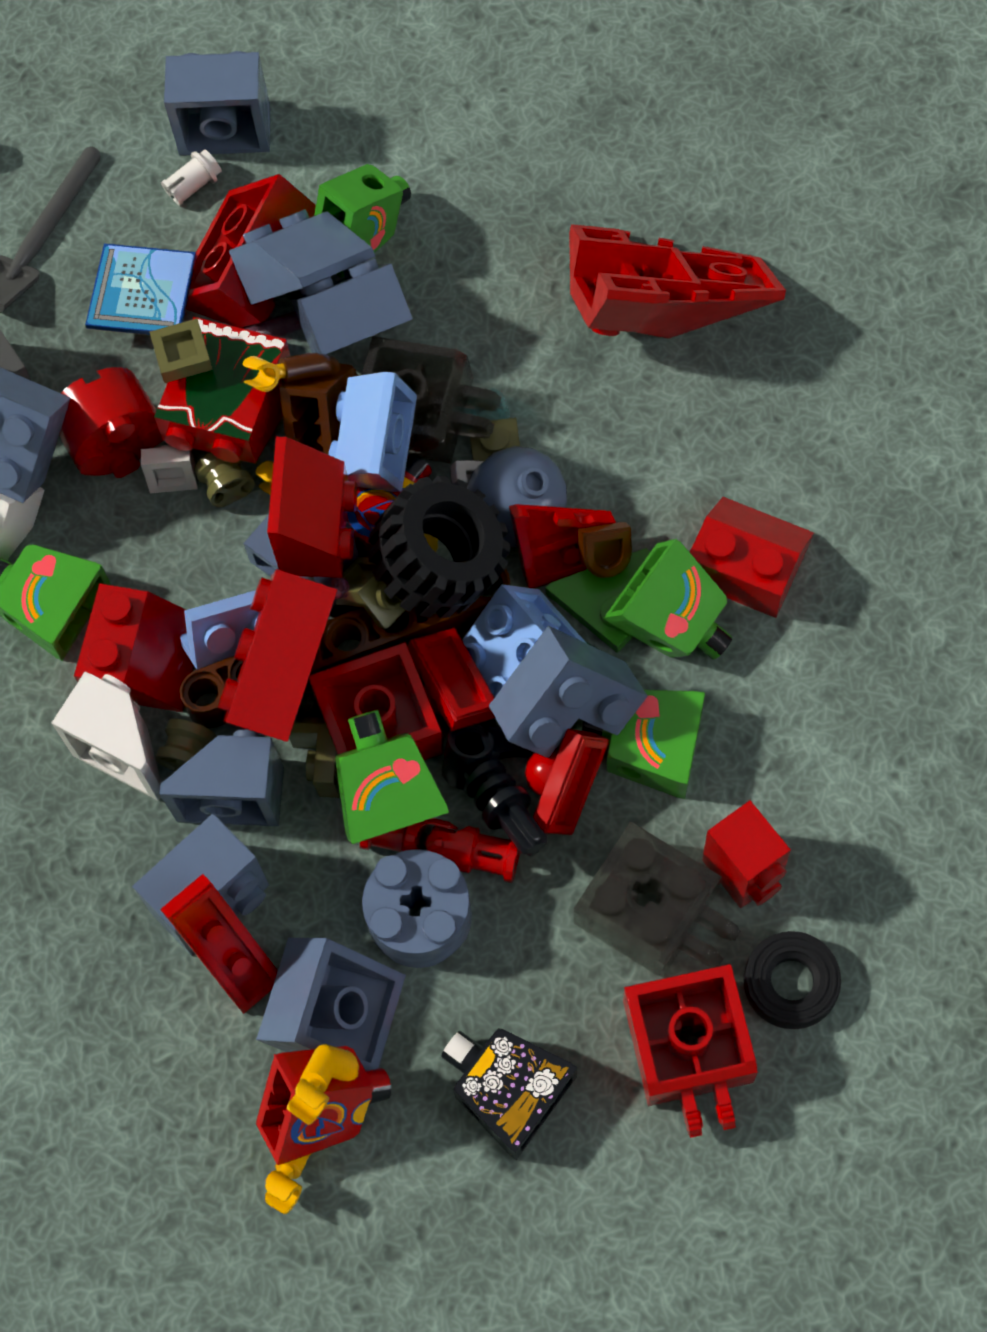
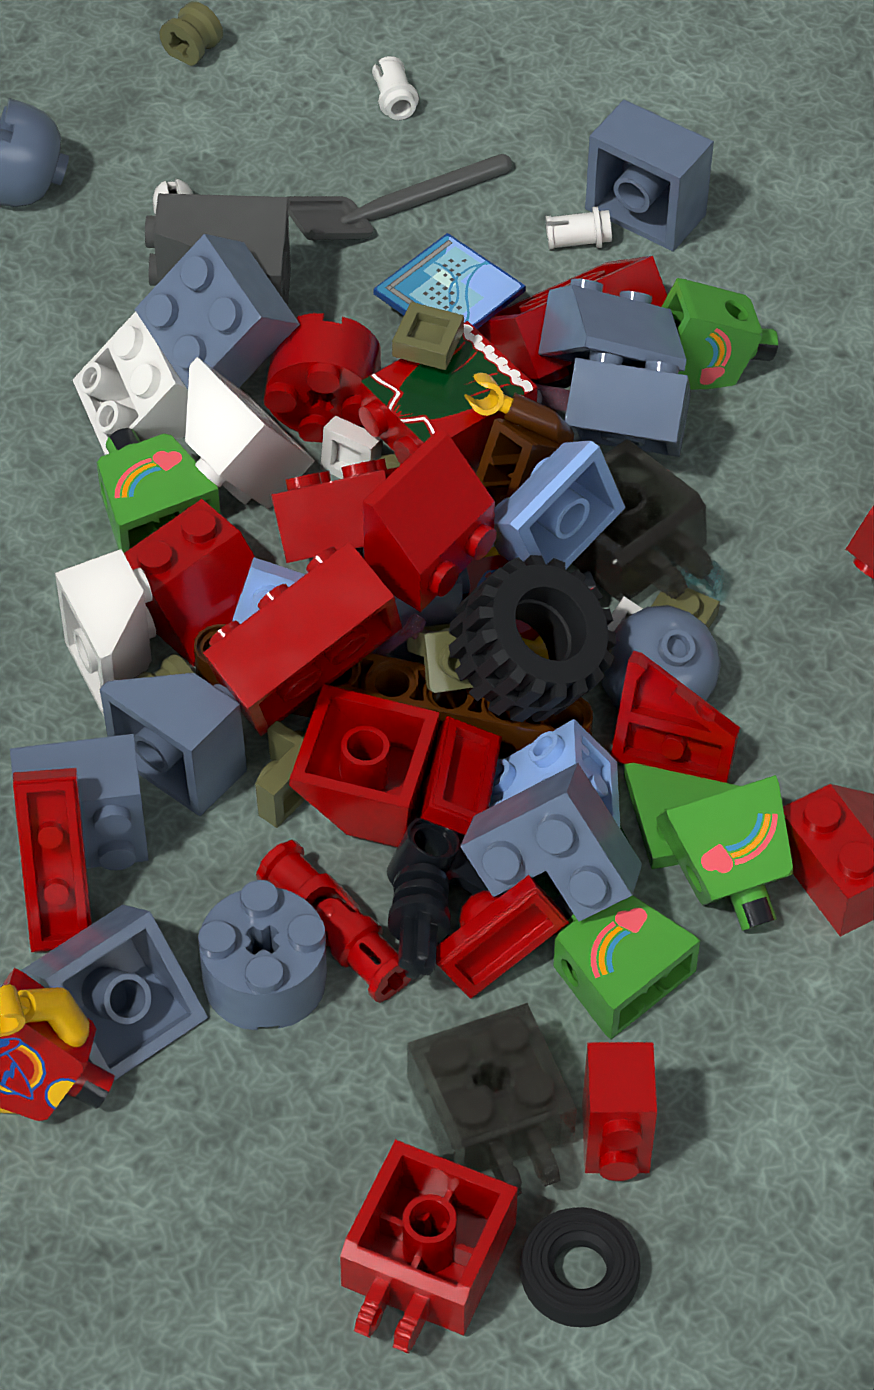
camera: 30 degrees right, 15 degrees down
(87, 515) = (238, 439): none -> white slope
(214, 528) = (324, 511): none -> red brick
(384, 782) = (313, 810): bright green torso -> none
(508, 1085) = (221, 1172): torso -> none
(605, 548) = (706, 756): reddish brown tile -> none

